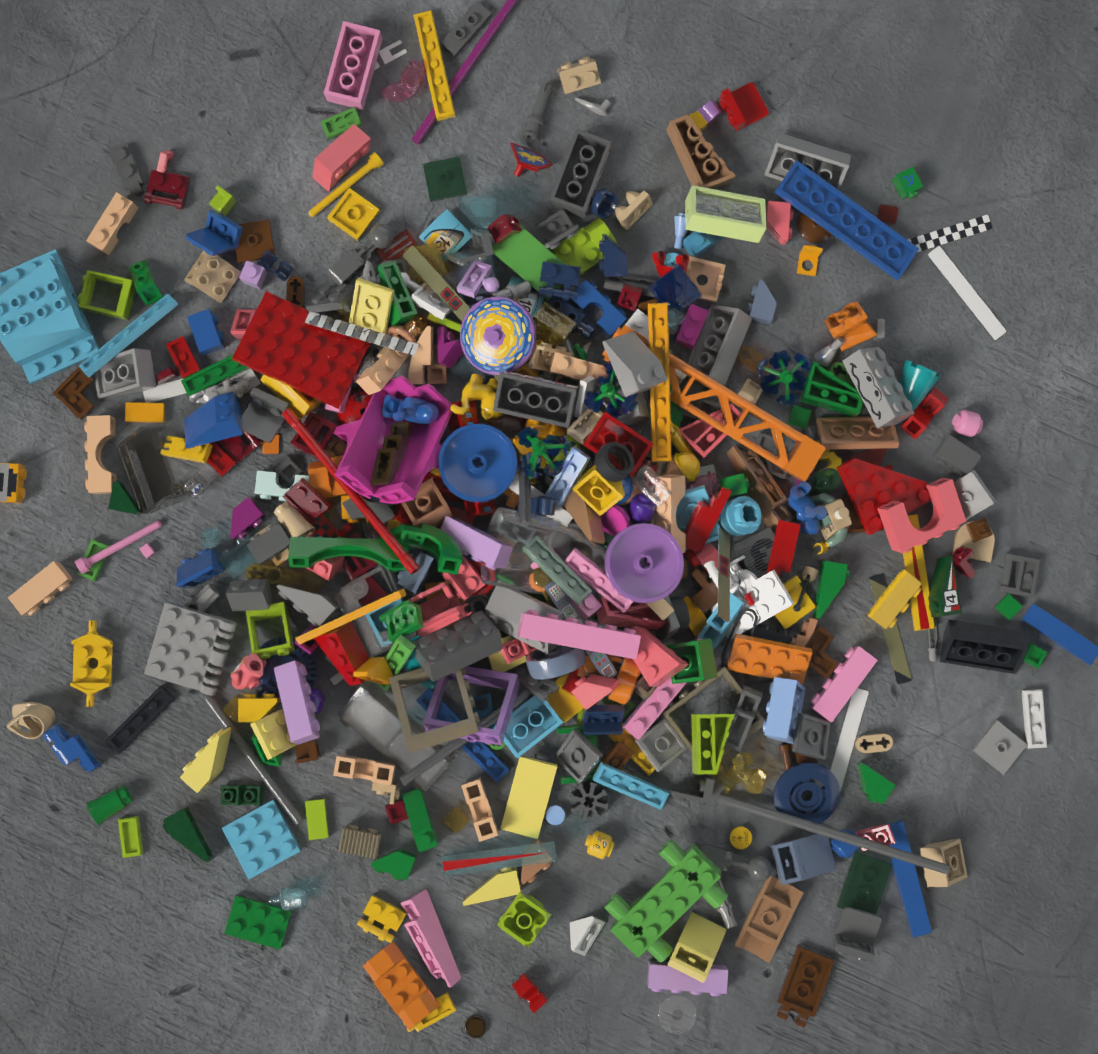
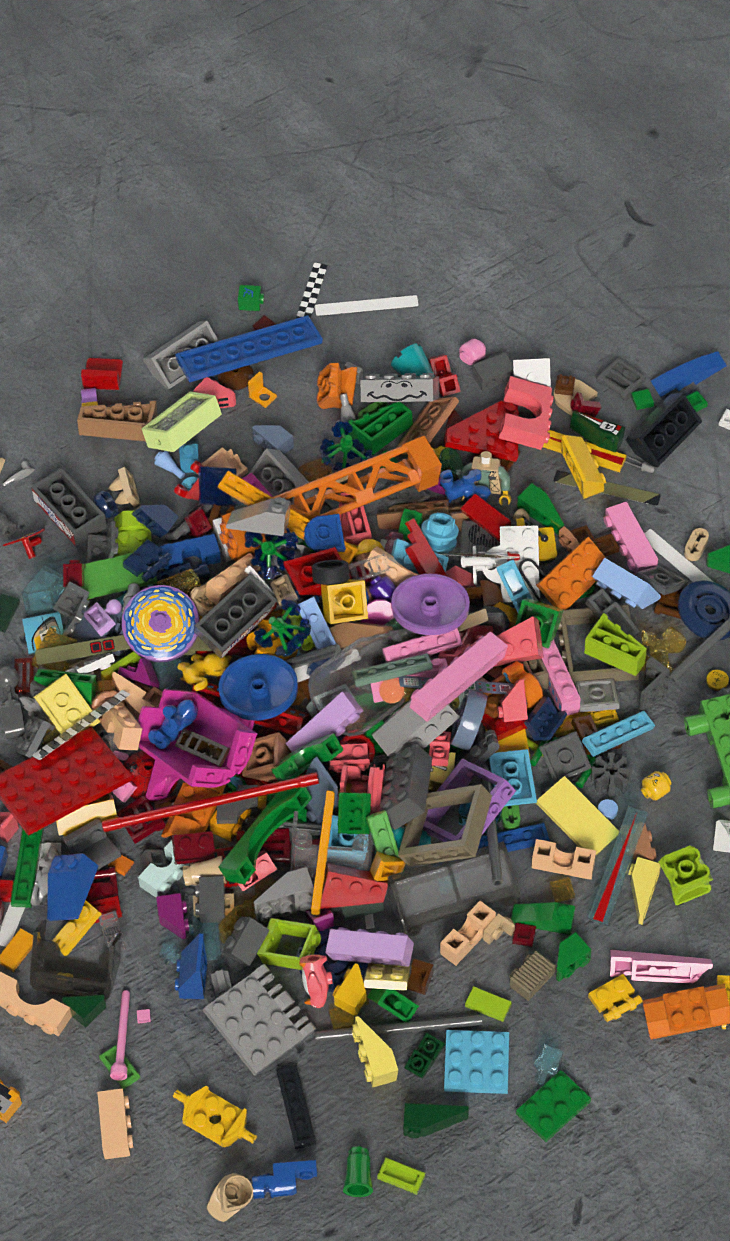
camera: 55 degrees left, 30 degrees down
(663, 425) = (324, 533): none -> blue tile

